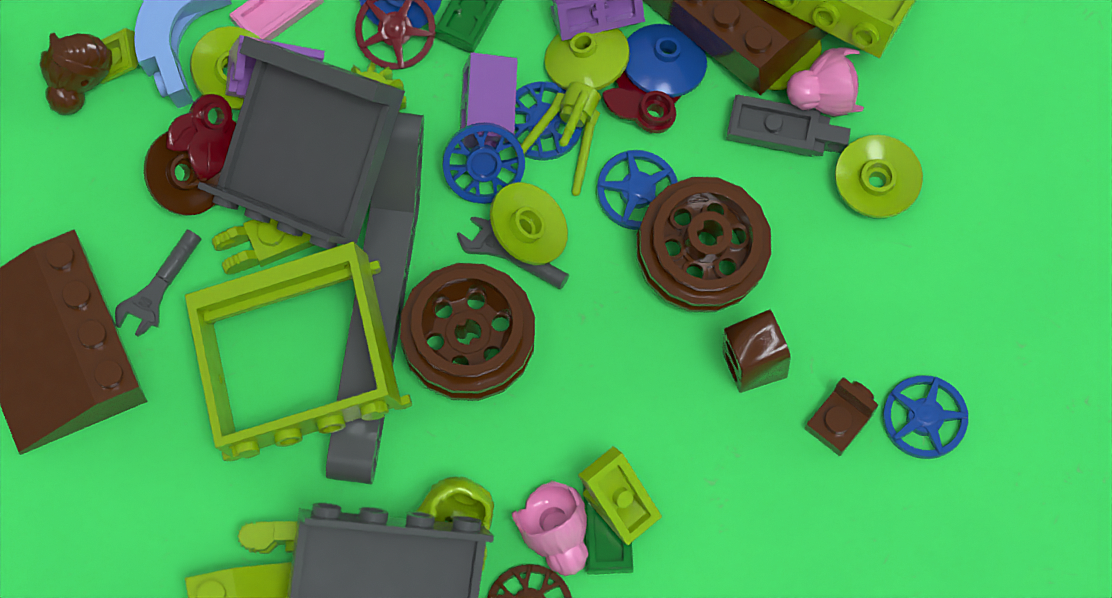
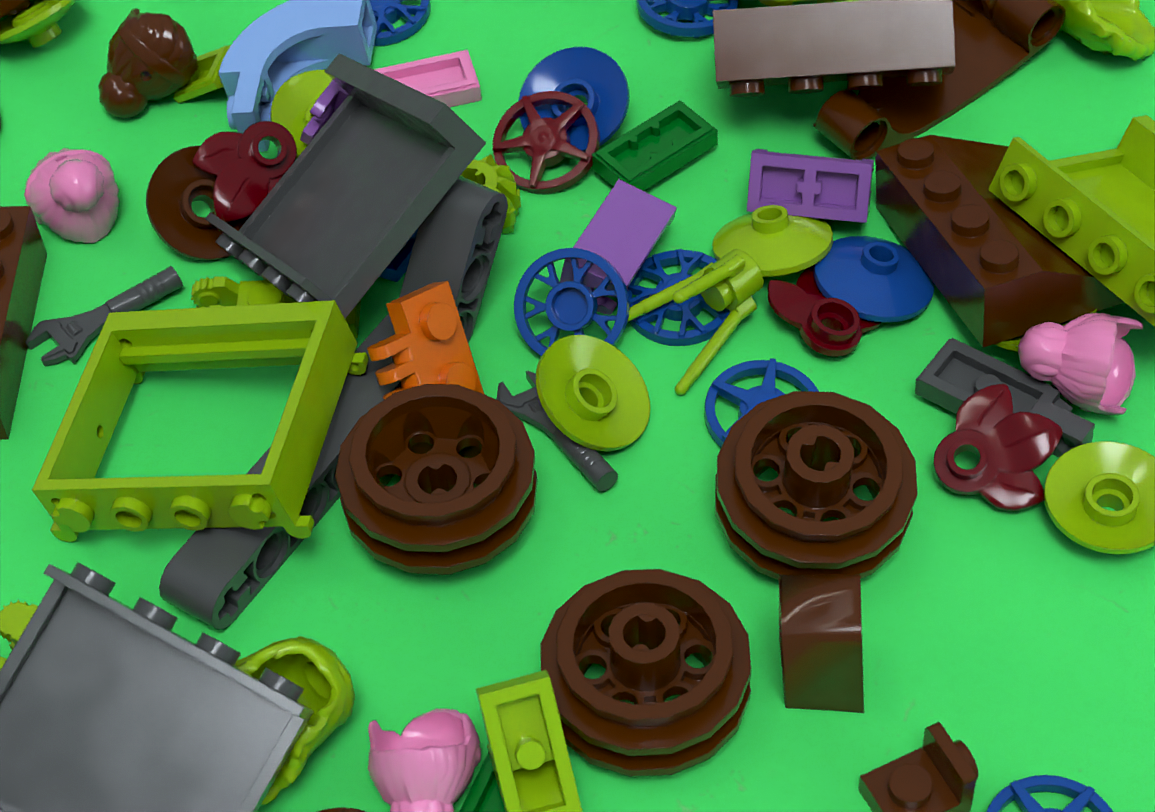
camera: 30 degrees right, 20 degrees down
(88, 203) = (74, 194): none -> bright pink piece
(416, 243) = (426, 343): none -> orange hinge
(670, 369) = (641, 633): none -> reddish brown wheel
(802, 164) = (1007, 448): none -> dark red plate

